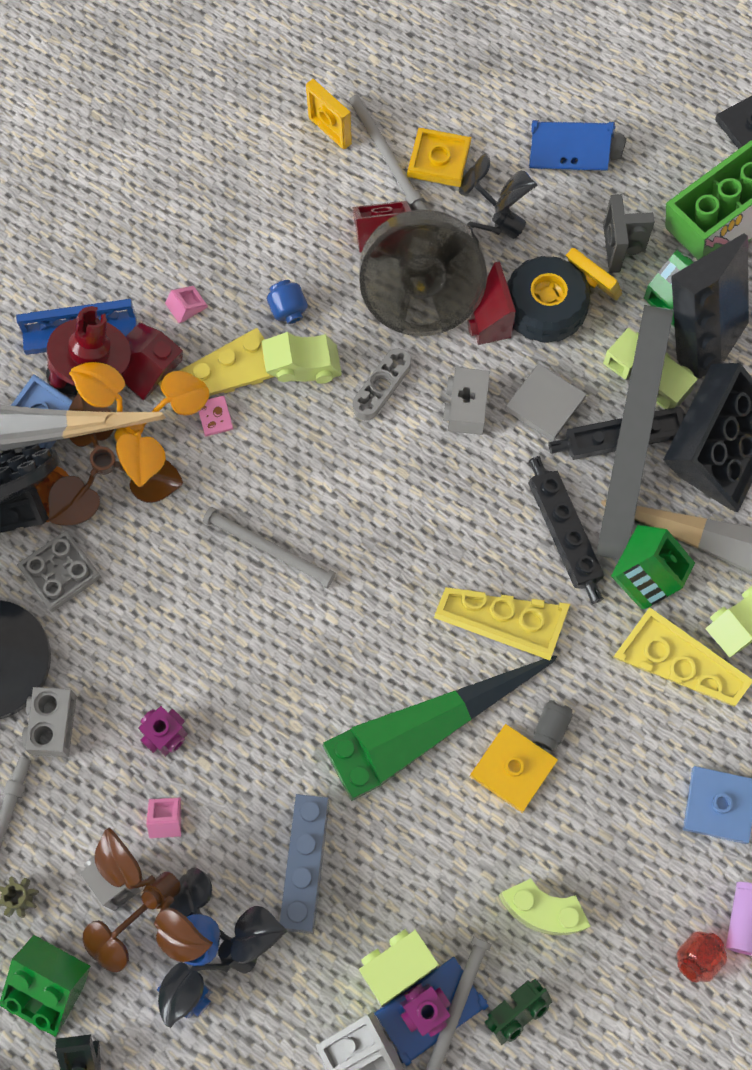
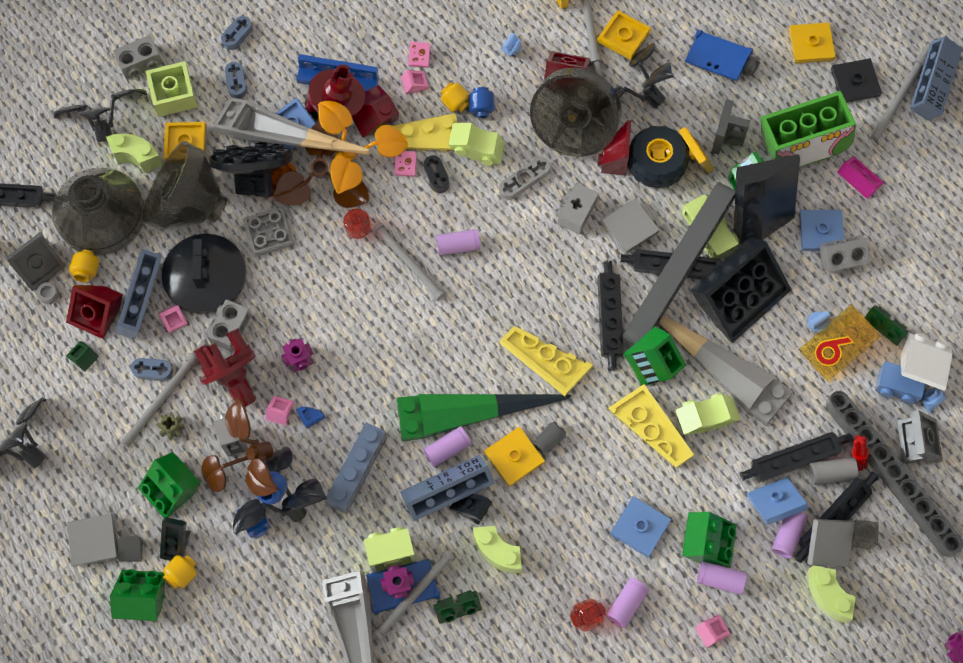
camera: 20 degrees right, 0 degrees up
(76, 788) = (228, 371): none -> dark red piece
(179, 265) = (419, 54): none -> bright pink slope
(179, 519) = (357, 223): none -> clear red head
(210, 810) = (310, 416): none -> blue tile
(249, 306) = (455, 97): none -> yellow head
(266, 412) = (440, 172): none -> black beam
(298, 215) = (511, 45): none -> light blue plate
(326, 498) = (458, 242): none -> lavender pin
(418, 787) = (447, 446): none -> lavender pin
(441, 846) = (447, 487): none -> sand blue brick
(484, 859) = (472, 507): none -> black slope
(679, 94) = (812, 42): none -> yellow plate

